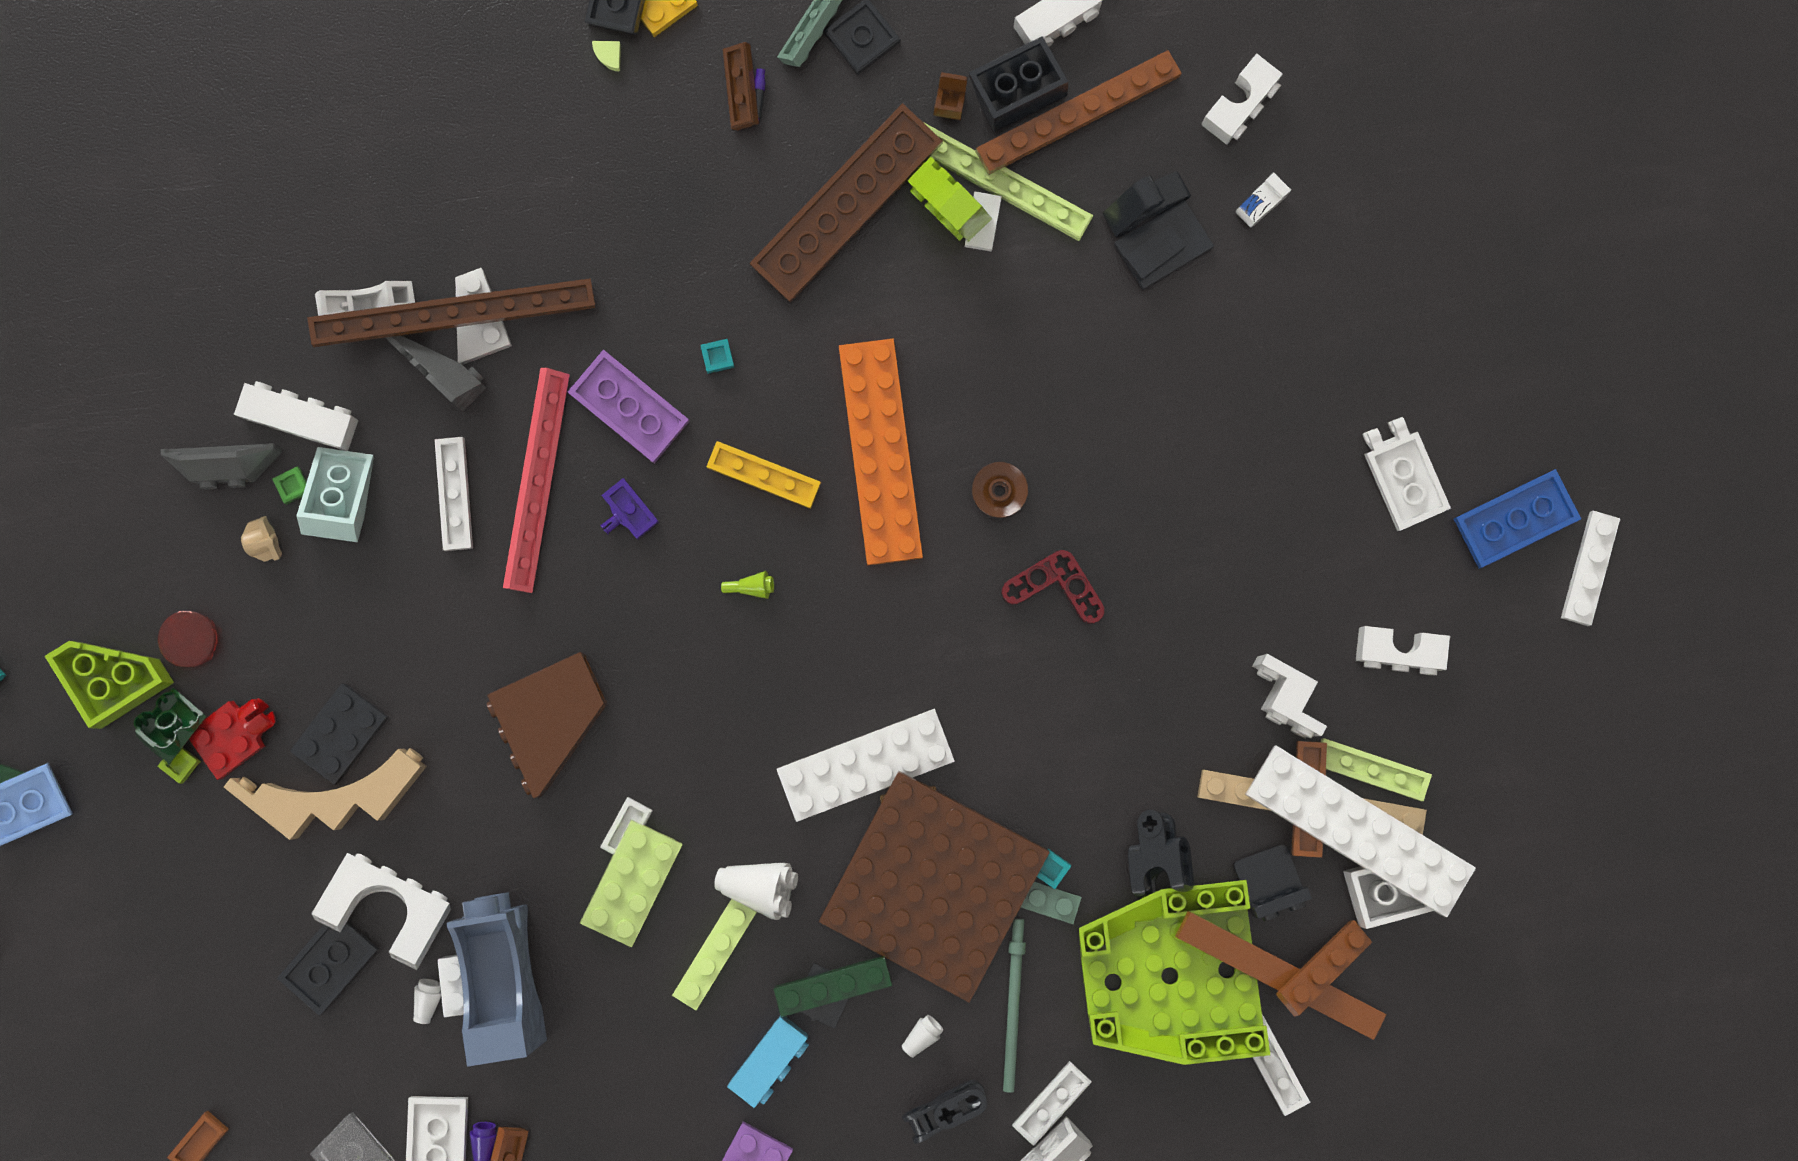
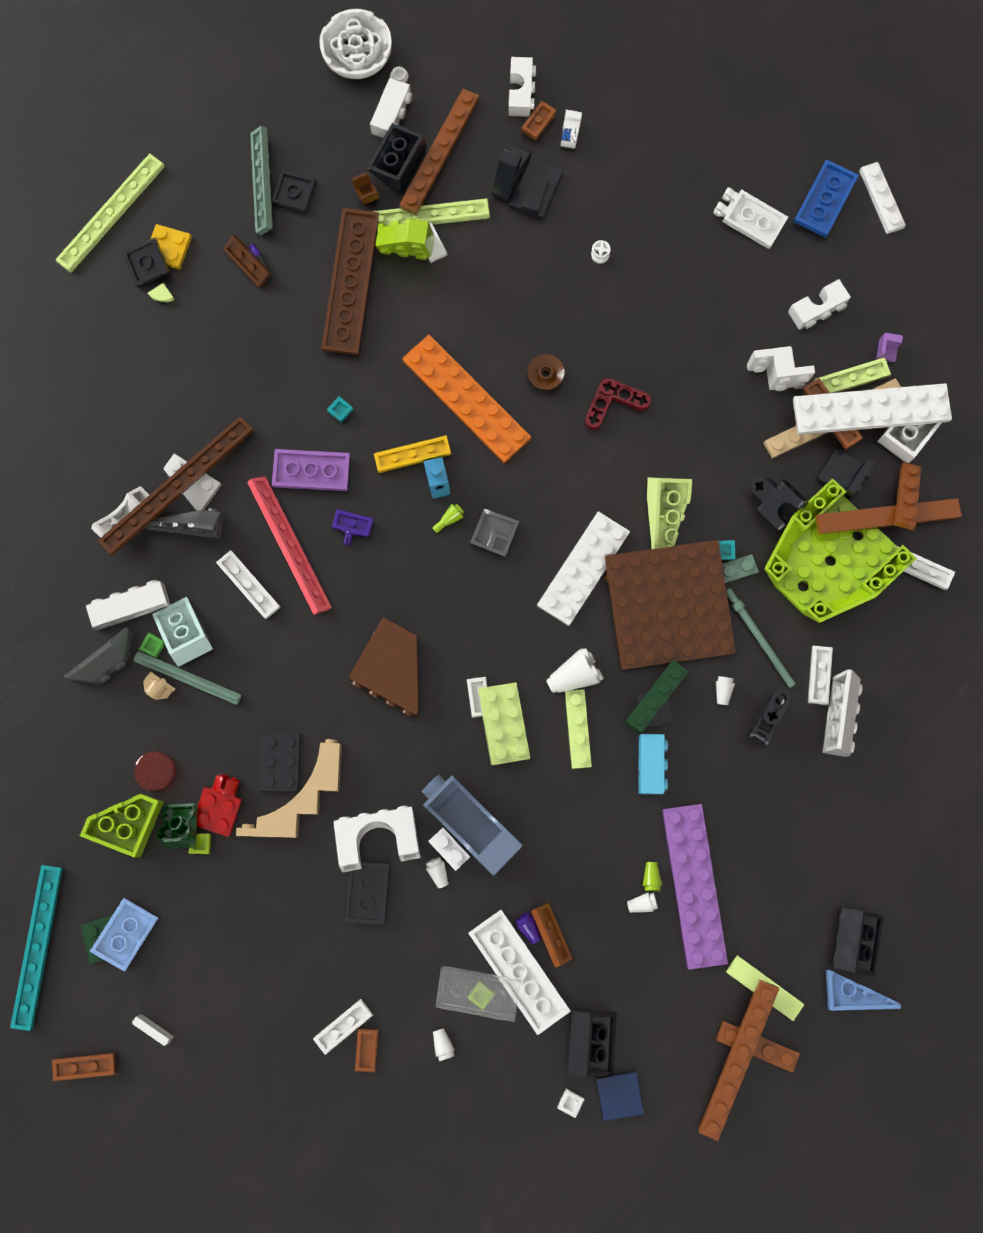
camera: 35 degrees left, 5 degrees down
(191, 1096) = (343, 1026): none -> white tile
(304, 555) = (187, 678): none -> sand green axle
(770, 526) = (437, 477): none -> dark azure torso
(790, 643) = (494, 532): none -> dark grey plate
(1021, 763) = (666, 508): none -> yellowish green wedge
(1186, 381) = (601, 247): none -> white wheel
(1232, 159) = (538, 120): none -> dark orange plate
(1447, 765) = (888, 346): none -> medium lavender panel

